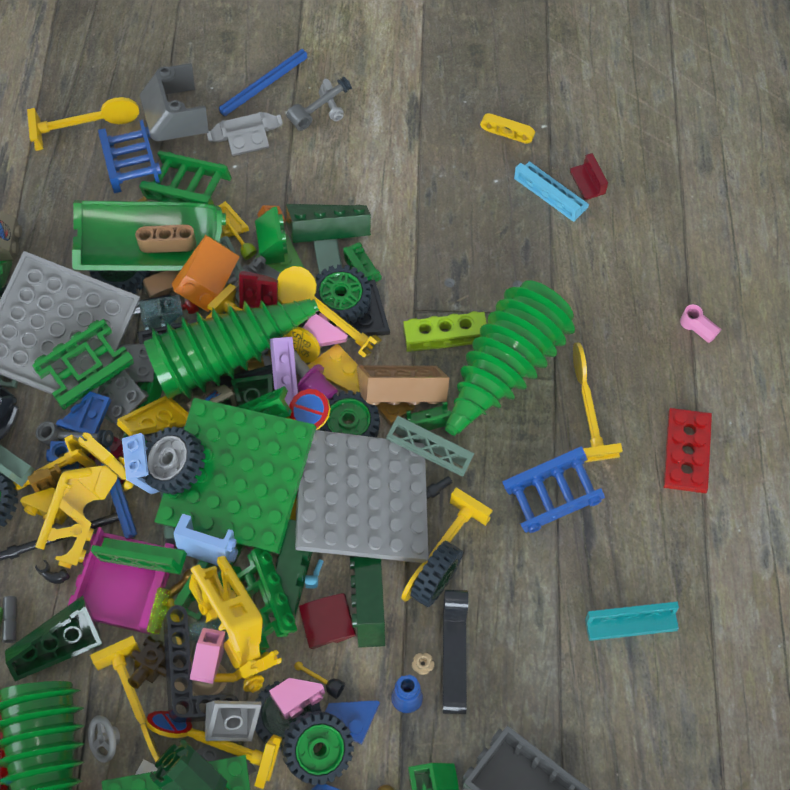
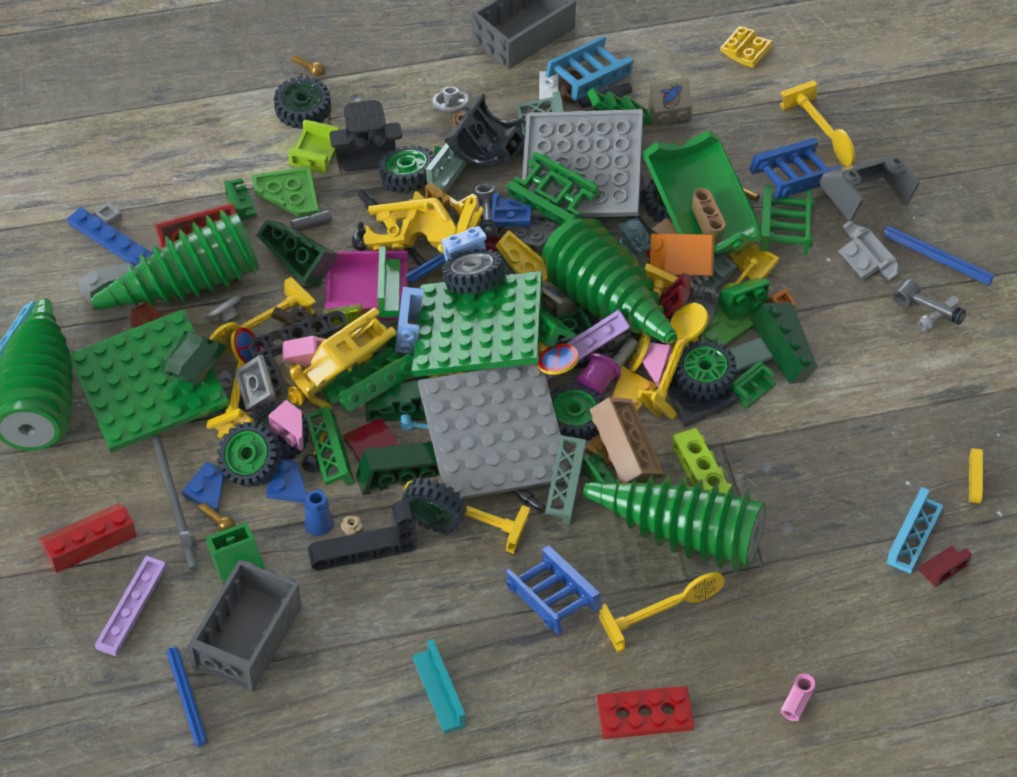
camera: 75 degrees right, 10 degrees down
(306, 655) = (337, 446): none -> green fence

